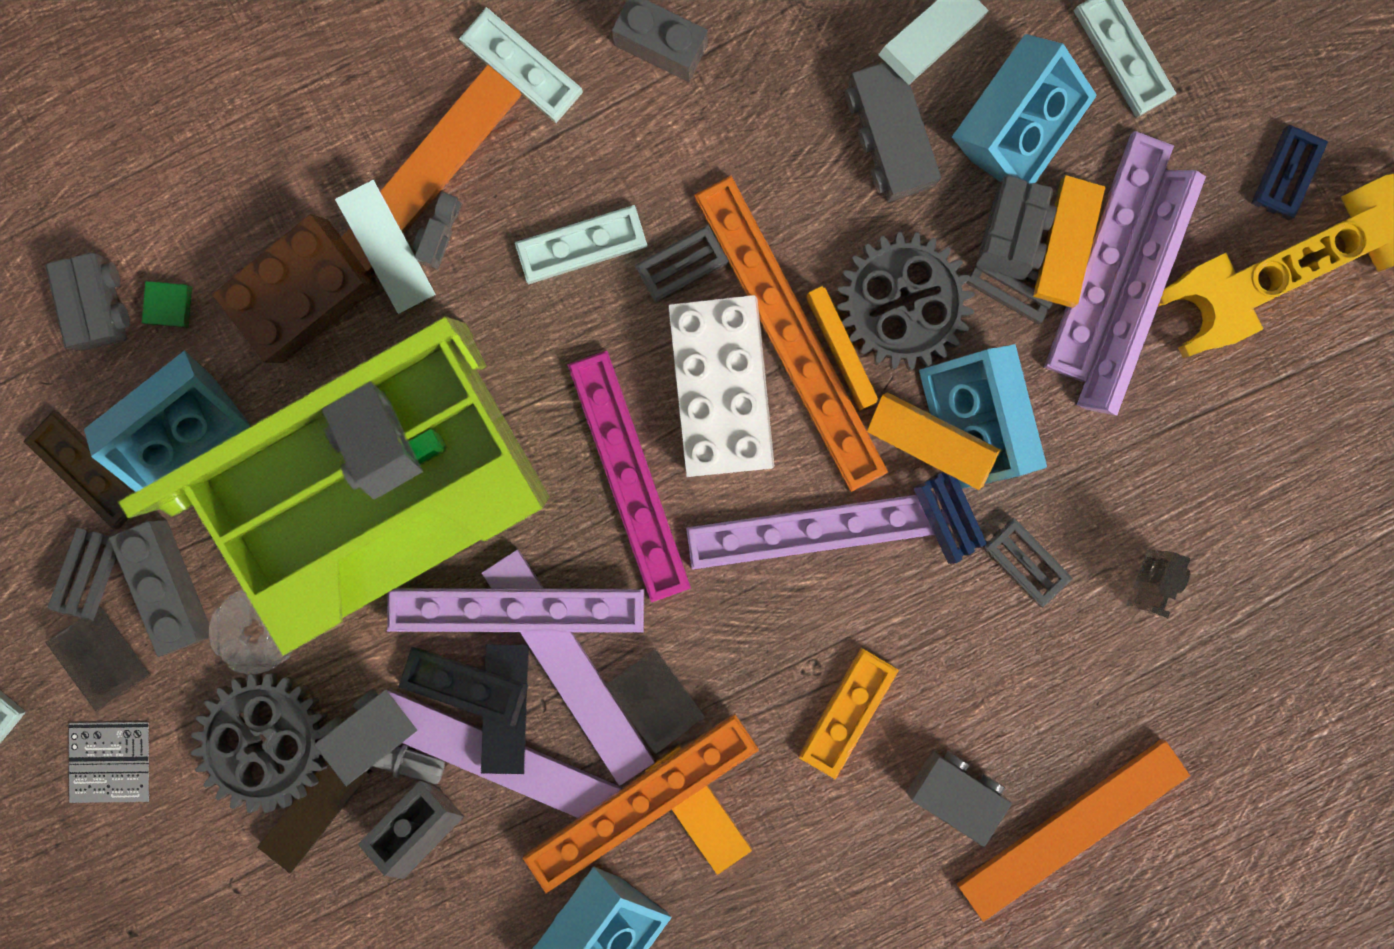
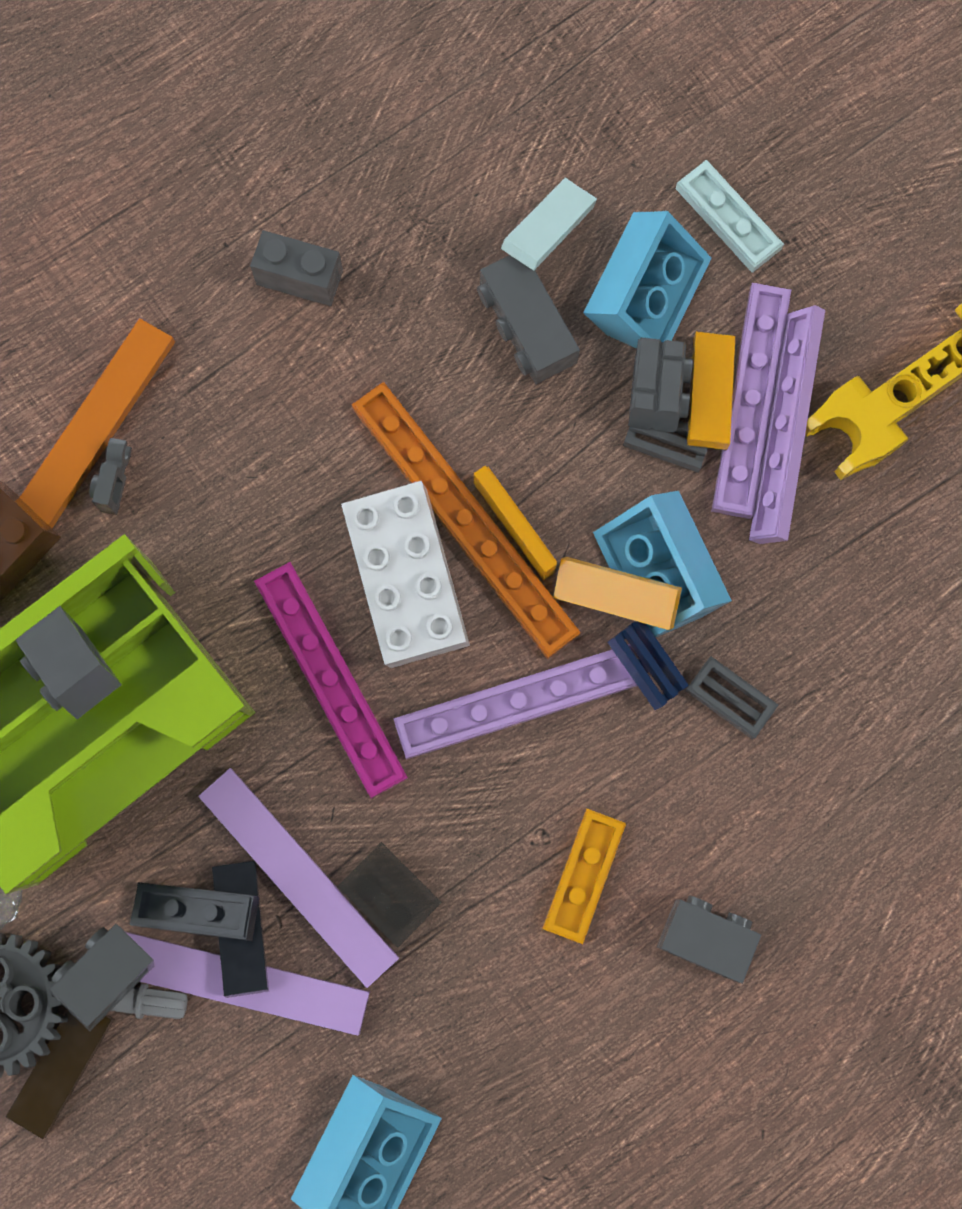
camera: 15 degrees left, 10 degrees down
(385, 246) = (63, 498): light aqua tile -> none
(410, 830) = (160, 1069): dark grey brick -> none
(428, 446) = (125, 667): green tile -> none
(515, 610) = (236, 826): lavender tile -> none
(521, 65) = (171, 314): light aqua tile -> none
(581, 244) = (251, 468): light aqua tile -> none
(640, 803) = (389, 1002): orange tile -> none
(651, 281) = (357, 484): dark grey tile -> none
(710, 826) = (451, 1000): light orange tile -> none
(891, 267) = (547, 440): dark grey gear -> none
(1073, 829) = (828, 956): orange tile -> none
(1160, 578) = (861, 686): clear smoke plate -> none
(1275, 204) = (896, 327): dark blue tile -> none

